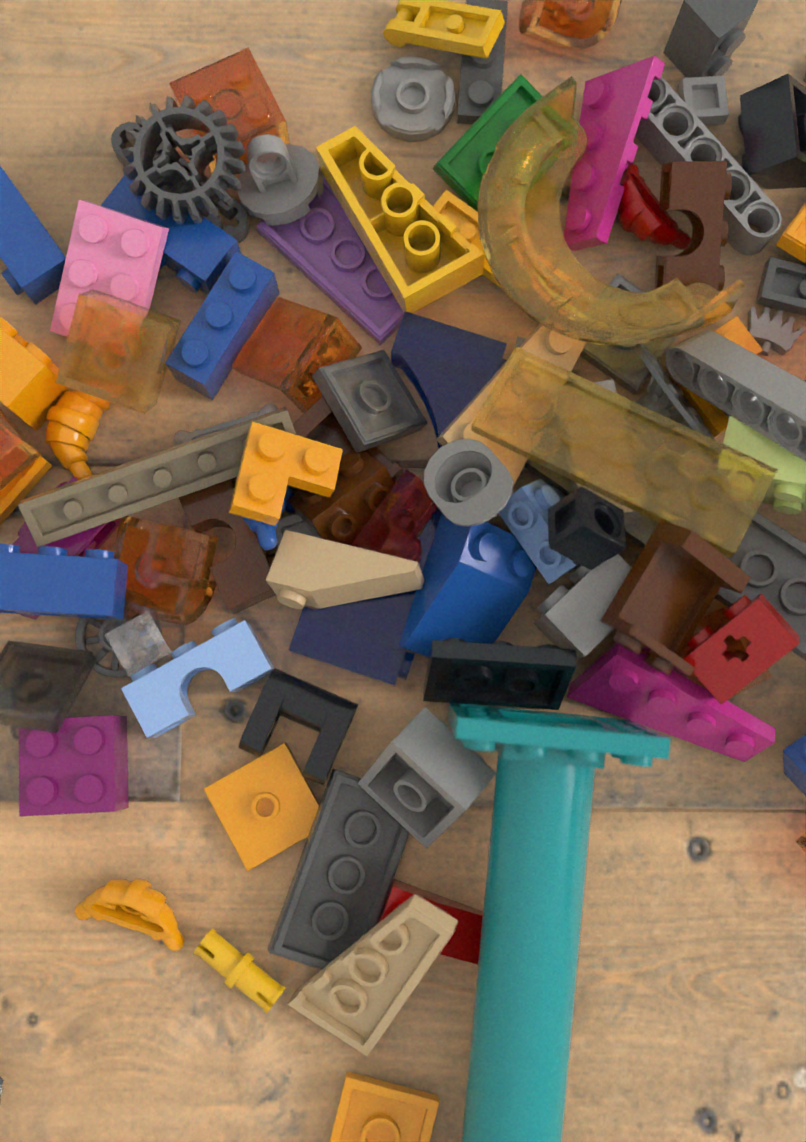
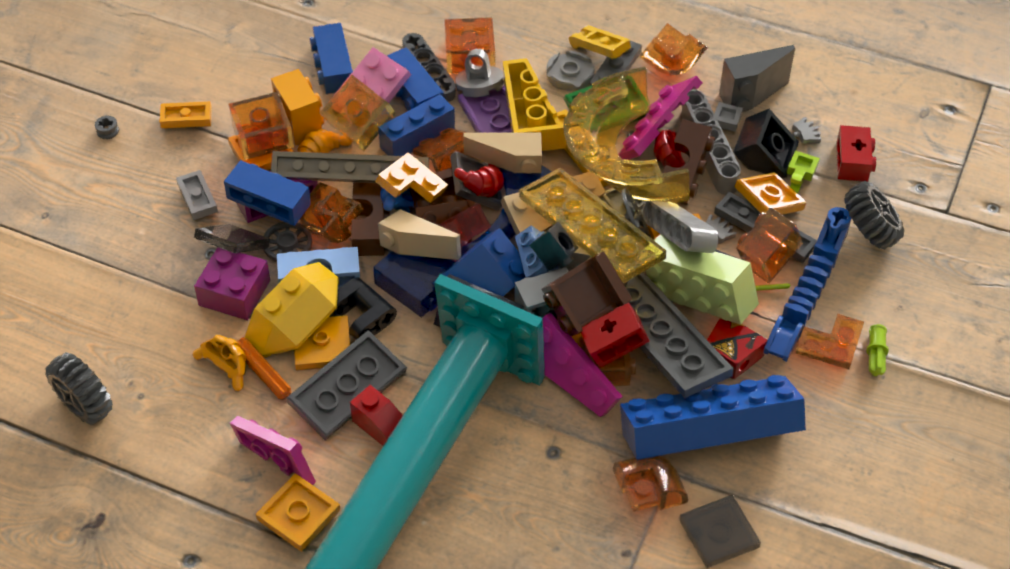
camera: 25 degrees right, 30 degrees down
(138, 643) = (296, 233): clear brick -> none
(198, 896) = (264, 370): none -> orange axle
(199, 150) = (448, 47): dark grey gear -> none
(206, 781) = (293, 309): none -> yellow wedge
(239, 970) = (264, 406): yellow pin -> none
(291, 1054) = (269, 443): none -> dark pink wing
(376, 975) = (340, 419): tan wing -> none
(391, 405) = (482, 182): none -> red piece
(413, 332) = (506, 150): none -> tan slope
(426, 778) = (413, 341): light grey brick -> none
(467, 482) = (504, 214): light grey piece -> none

